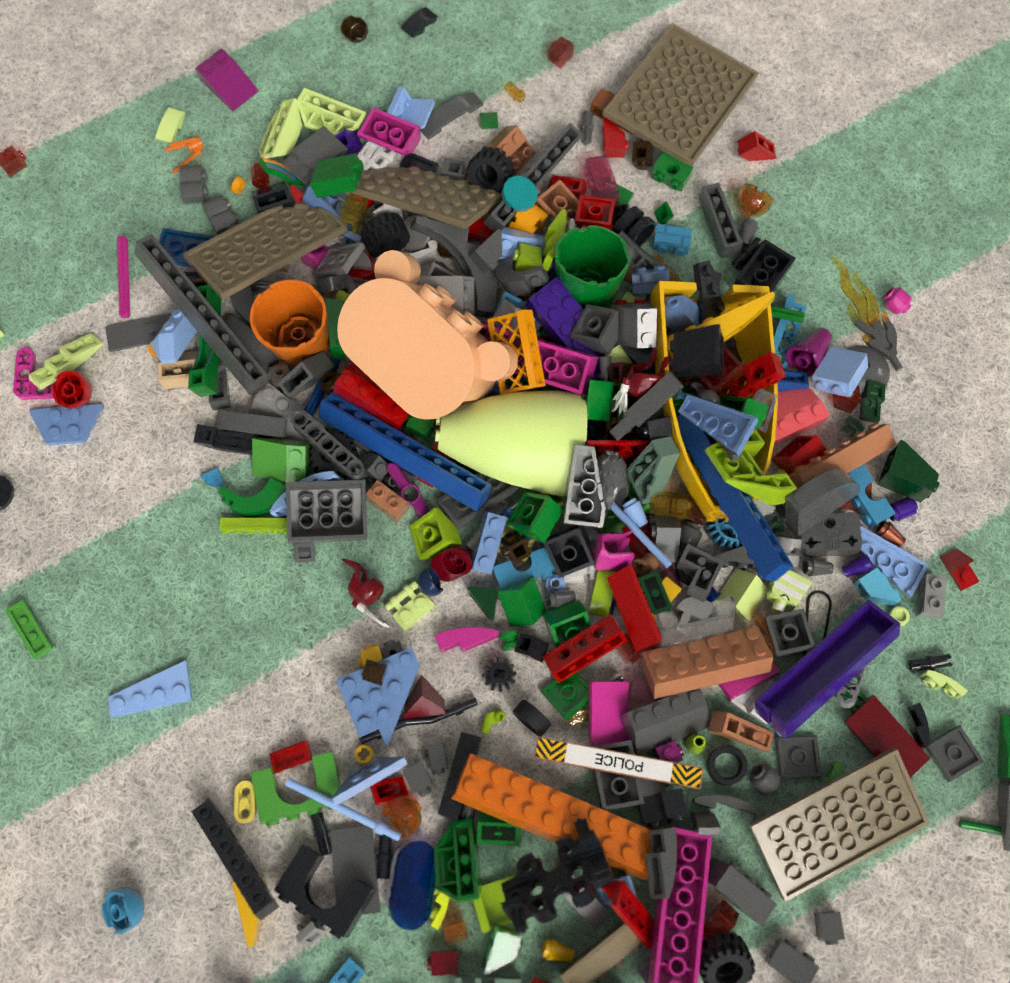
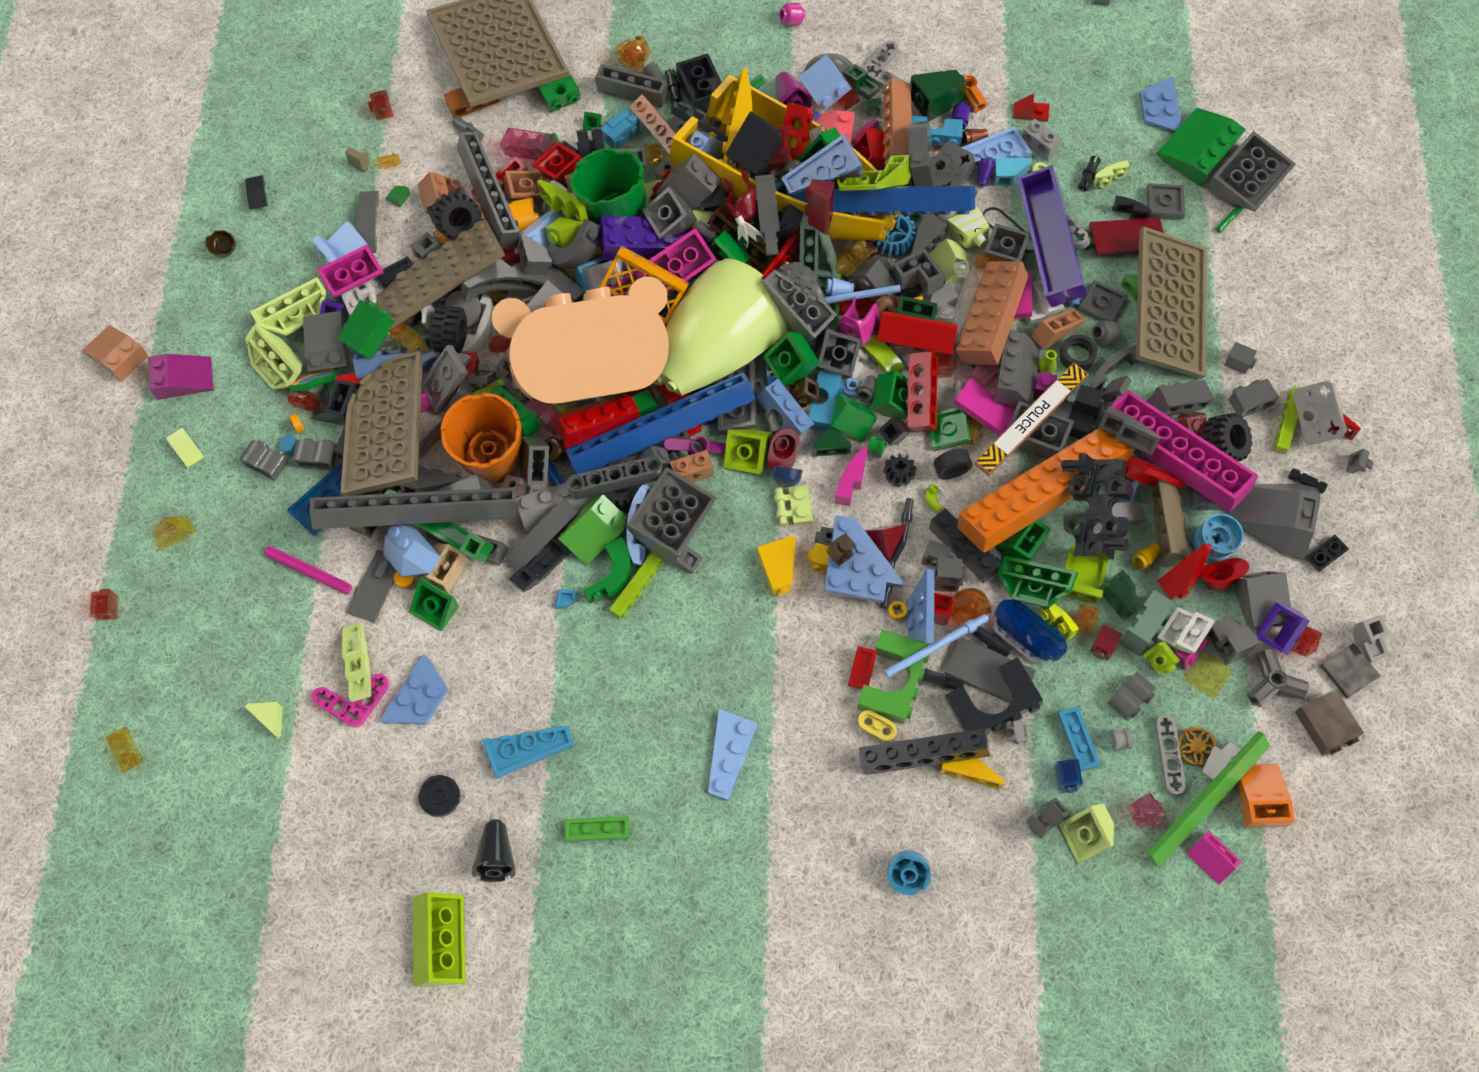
camera: 55 degrees left, 5 degrees down
(63, 528) = (519, 751): none -> dark azure wing
(72, 389) = (393, 666): red cylinder -> none
(99, 164) = (172, 530): none -> clear yellow slope
(145, 384) = (433, 605): none -> green slope
(193, 144) = (223, 439): orange plant -> none
(217, 27) = (116, 352): none -> nougat slope
(218, 190) = (288, 444): none -> dark azure tile
(343, 628) = (778, 564): none -> yellow slope
(365, 591) = (761, 529): dark red hair -> none
(500, 72) = (357, 159): none -> dark tan tile
(519, 193) = (499, 202): teal tile -> none
(613, 140) = (495, 116): red slope -> none
(642, 154) = (524, 99): dark brown brick -> none
(645, 280) = (652, 158): medium blue brick -> none
(679, 444) = (820, 205): none -> dark red slope
(701, 249) = (654, 121): none -> nougat brick
(756, 147) = (586, 24): red slope -> none
(826, 437) = (872, 124): none -> dark pink animal
(869, 321) = (802, 42): piece -> none
(900, 407) = (879, 68): none -> light grey beam
(934, 507) = (973, 94): none -> orange piece

